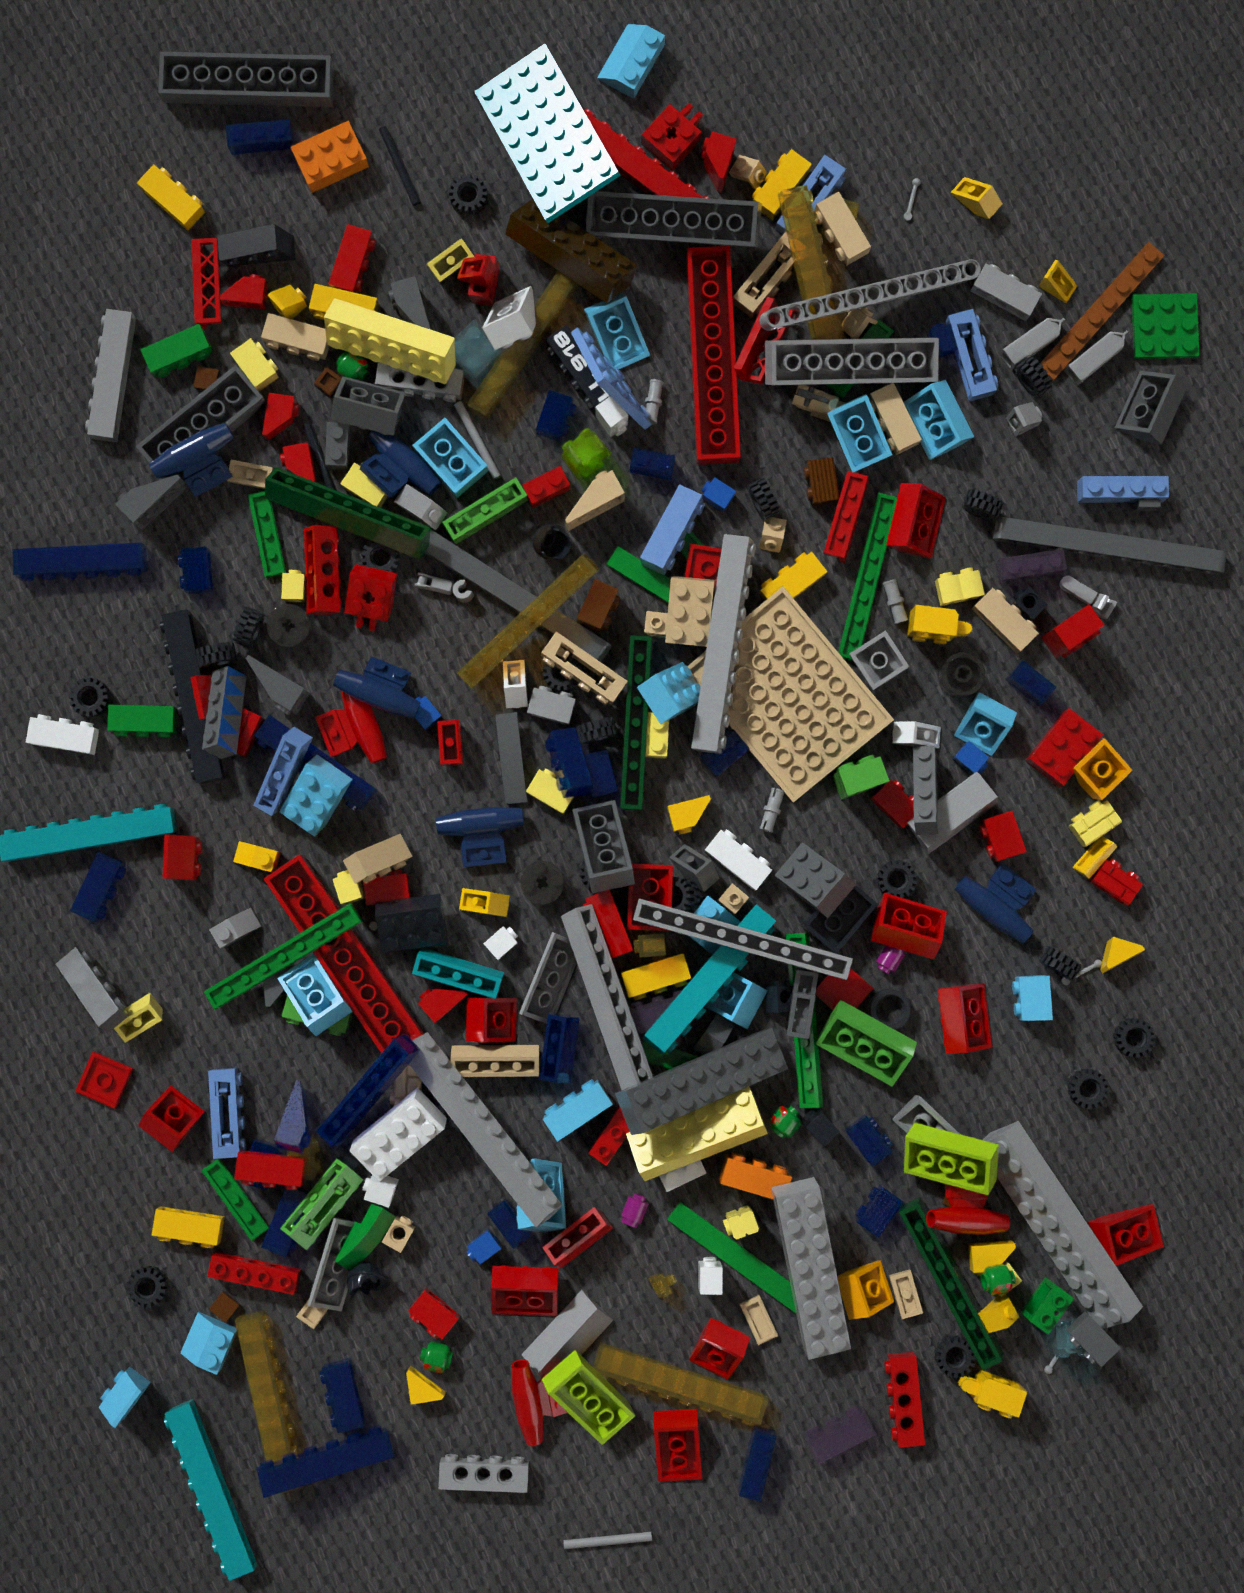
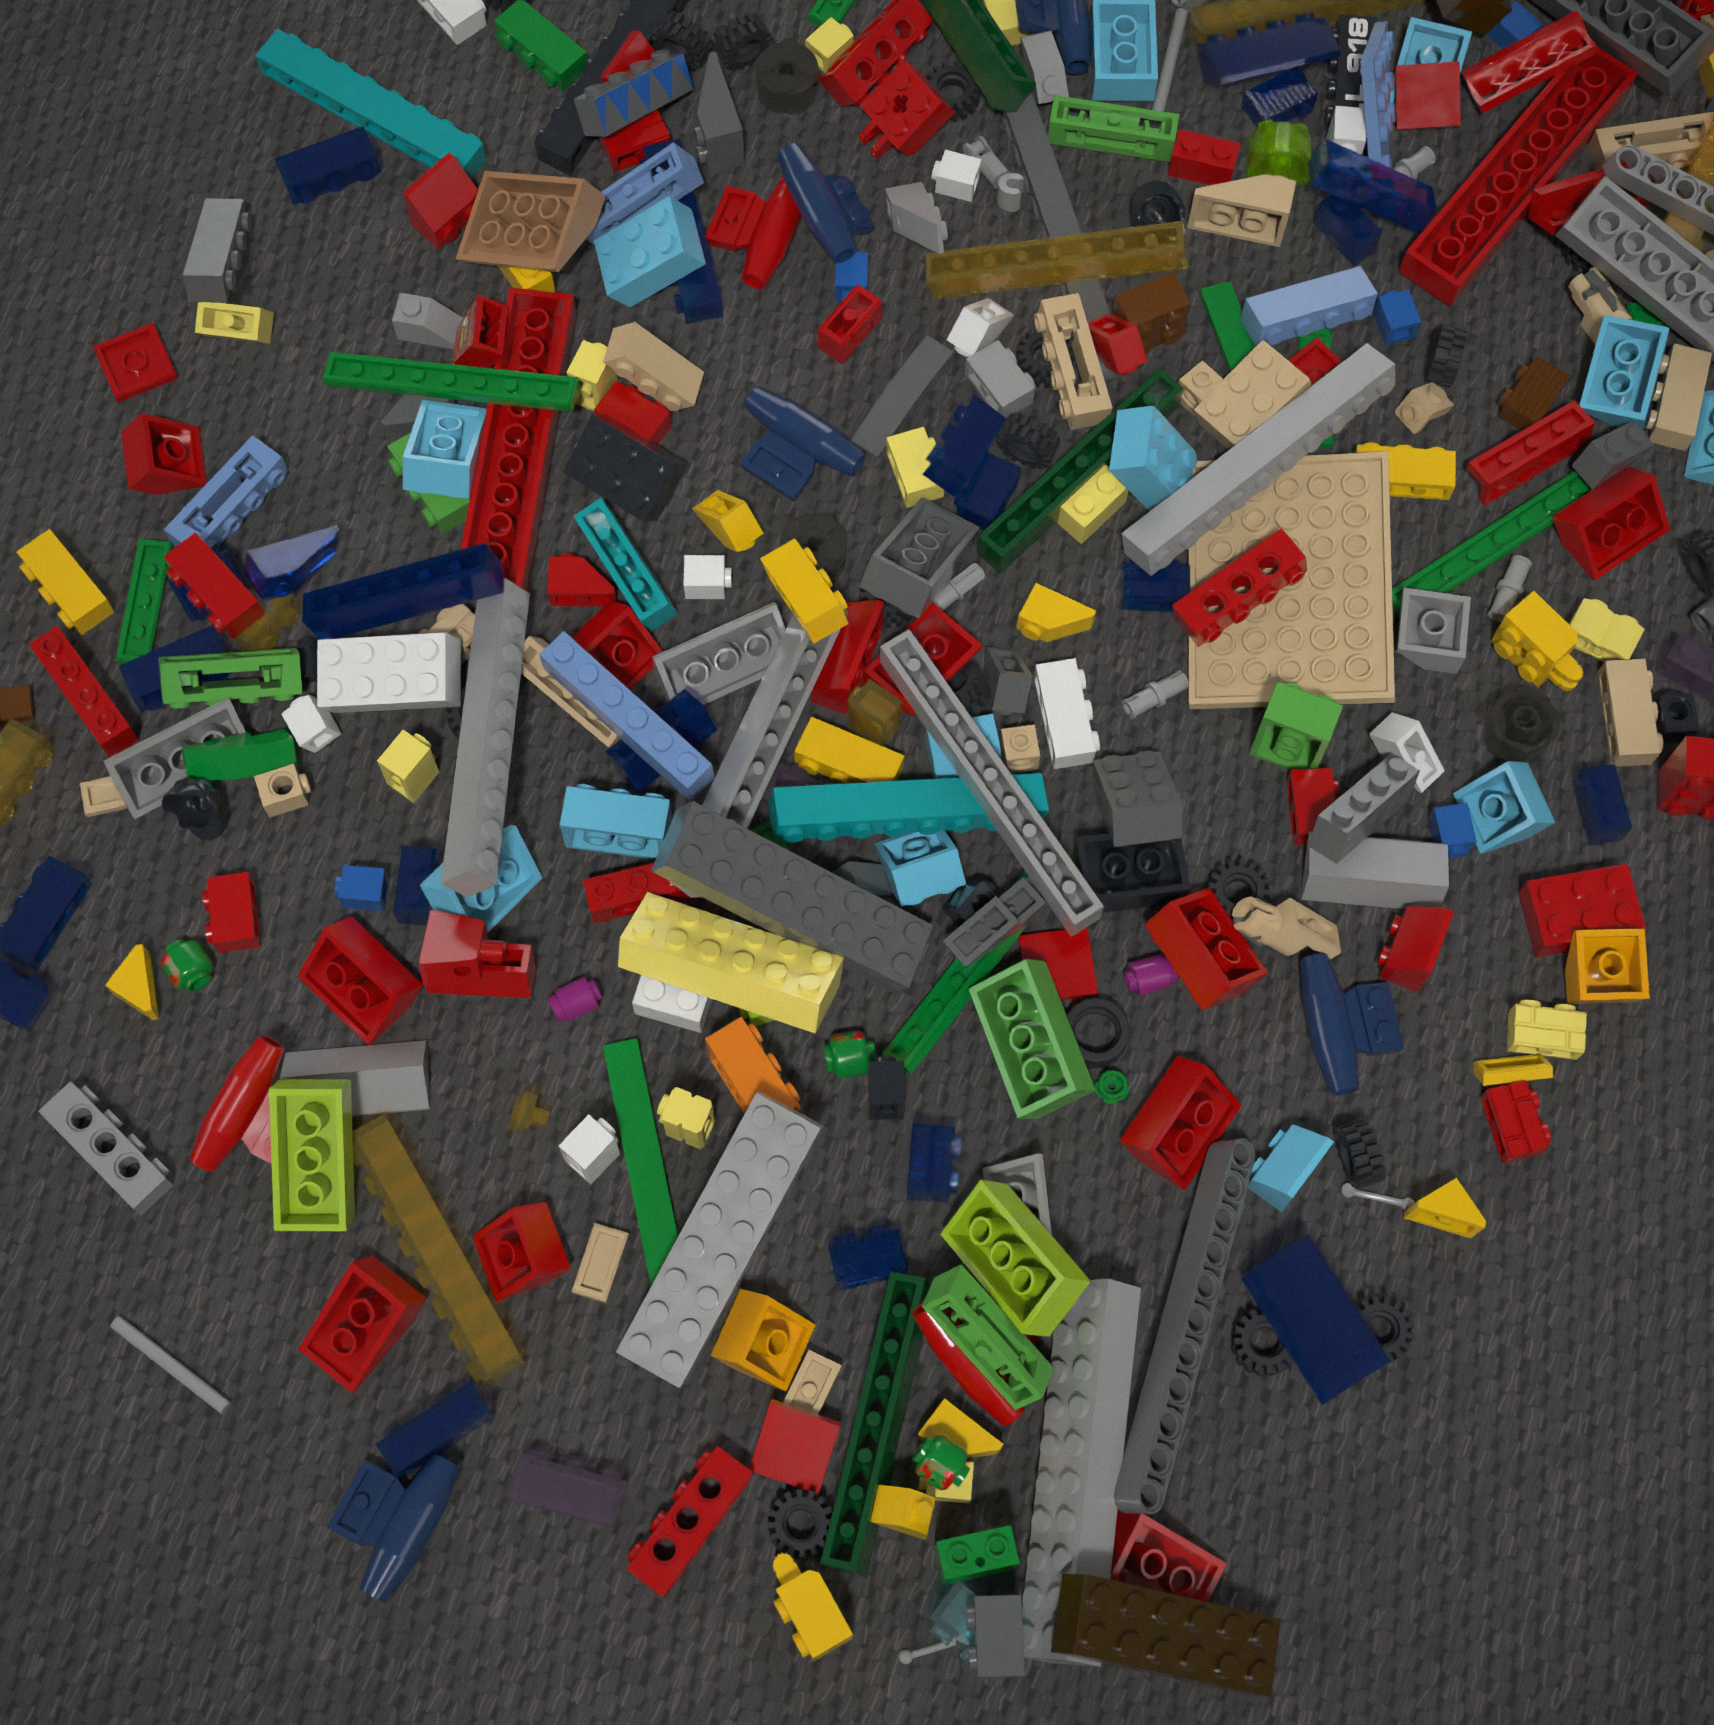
camera: 45 degrees right, 15 degrees down
(240, 835) = (529, 220): none -> medium nougat slope
(276, 920) = (481, 345): none -> red torso
(427, 607) = (957, 175): none -> white brick
(429, 654) = (915, 216): none -> light grey slope
(451, 1170) = (408, 765): none -> light yellow brick
(527, 395) = (1267, 49): none -> clear blue slope
(539, 1059) = (627, 716): none -> medium blue brick
(565, 1244) = (456, 949): none -> red torso
(567, 918) = (805, 590): none -> yellow brick
(596, 640) = (1117, 343): none -> red slope
(629, 833) = (959, 585): none -> light grey axle
(630, 349) = (1428, 96): none -> red tile
(645, 265) = (1514, 26): none -> blue brick
(649, 434) = (1372, 185): none -> clear blue brick
(665, 284) = (1526, 60): none -> red fence
(773, 689) = (1274, 552): none -> red brick
(774, 1517) = (393, 1519): none -> dark blue plate
(889, 484) = (1612, 454): none -> dark grey brick
(922, 1325) = (795, 1446): none -> red tile
(924, 1027) = (1118, 1080): none -> green plate
(936, 880) = (1285, 927): none -> tan plate
(972, 1208) = (988, 1337): none -> bright green brick
(1050, 1117) = (1184, 1328): none -> dark grey beam
(1106, 1064) = (1315, 1319): none -> clear blue slope
(1160, 1269) = (1165, 1635): none -> dark brown brick

